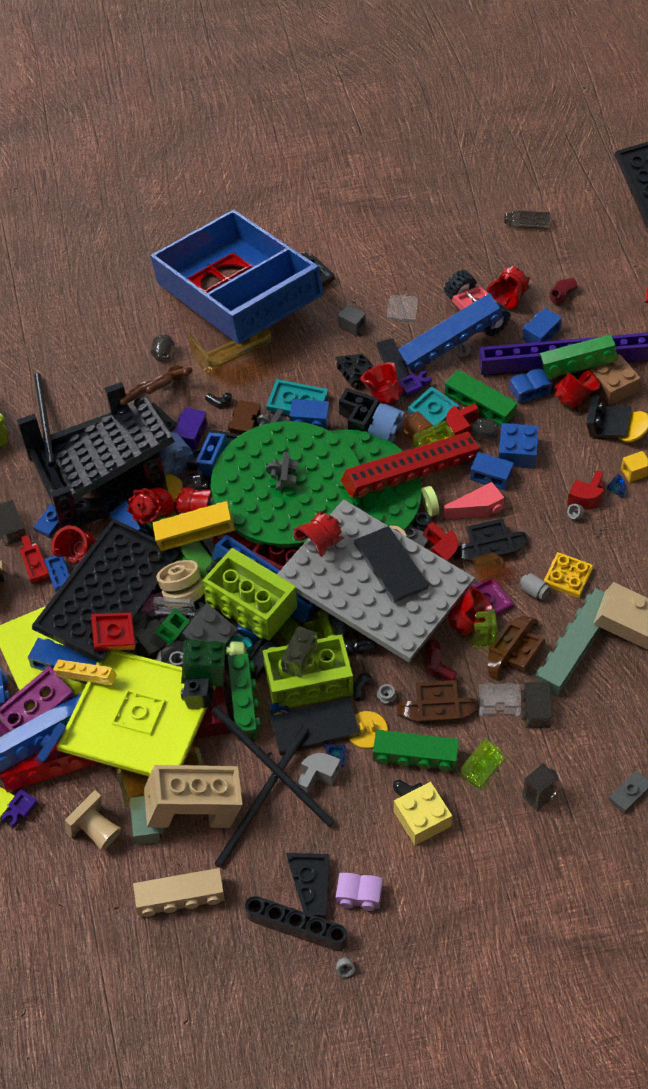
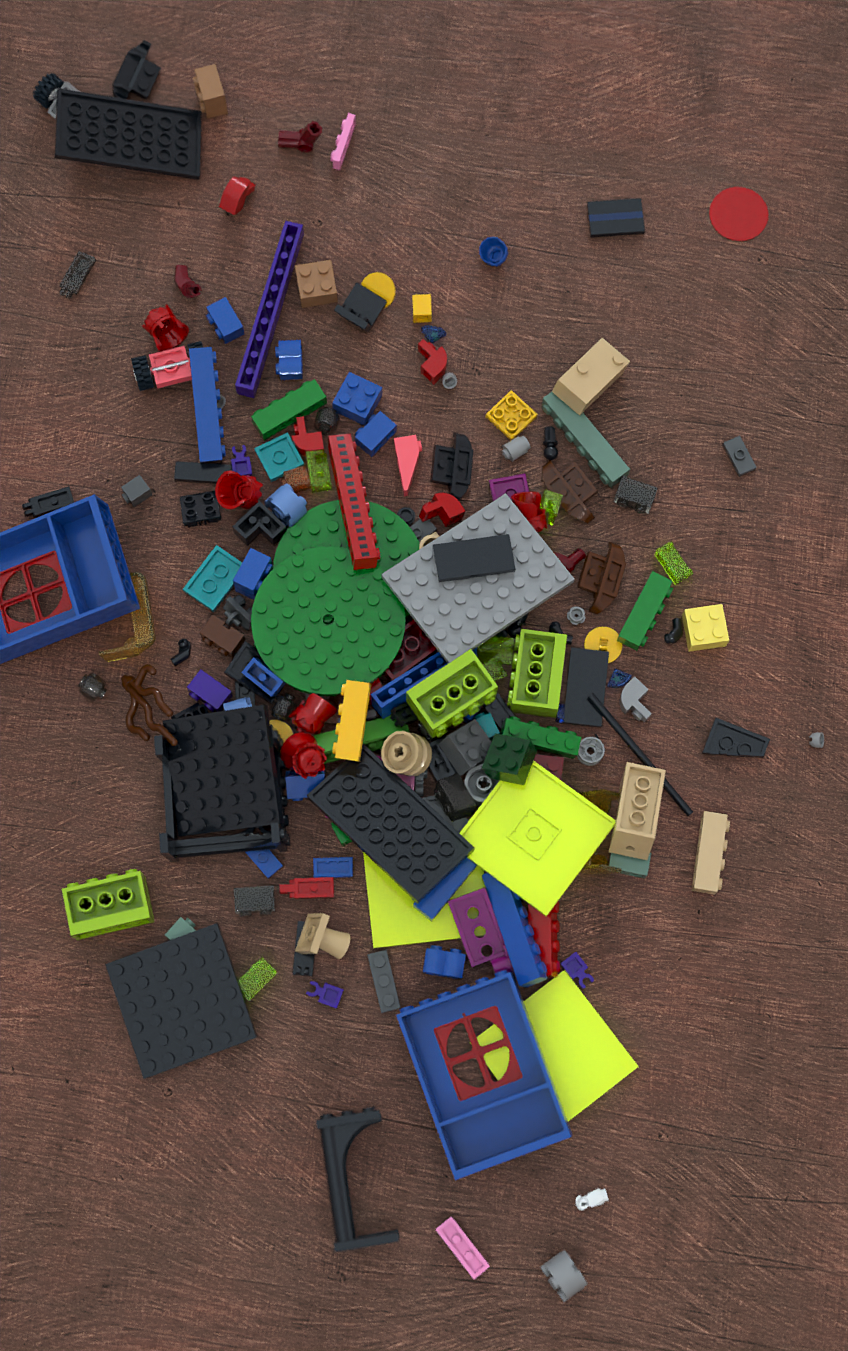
camera: 75 degrees left, 20 degrees up
(44, 420) = (144, 830): black piece -> none
(49, 742) = (540, 920): blue plate -> none
(71, 543) = (316, 840): red hat -> none
(85, 672) = (477, 868): yellow piece -> none
(89, 819) = (616, 909): tan plant -> none
(113, 631) = (447, 829): red tile -> none
(166, 605) = (433, 764): clear tile -> none
(172, 626) = (456, 774): green brick -> none
(198, 693) = (539, 774): black brick -> none
(235, 648) = (491, 727): yellowish green piece -> none
(245, 757) = (597, 747): none -> light grey wheel
(272, 766) = (618, 736): black piece -> none
(281, 469) = (325, 619): dark grey hips -> none
(299, 652) = (533, 670): clear smoke piece -> none
(302, 931) = (771, 757): black beam -> none
(322, 531) = (427, 605): red hat -> none
(359, 891) = (756, 704): lavender brick -> none
(402, 308) = (136, 438): clear piece -> none
(430, 501) = (391, 500): yellowish green piece -> none
(488, 566) = (482, 478): clear orange brick -> none
(499, 698) = (619, 517): clear brick -> none
(540, 786) = (718, 523): clear smoke piece -> none
(546, 617) = (550, 451): none -> black axle
(574, 391) = (317, 321): red hat -> none
(579, 356) = (289, 301): green brick -> none

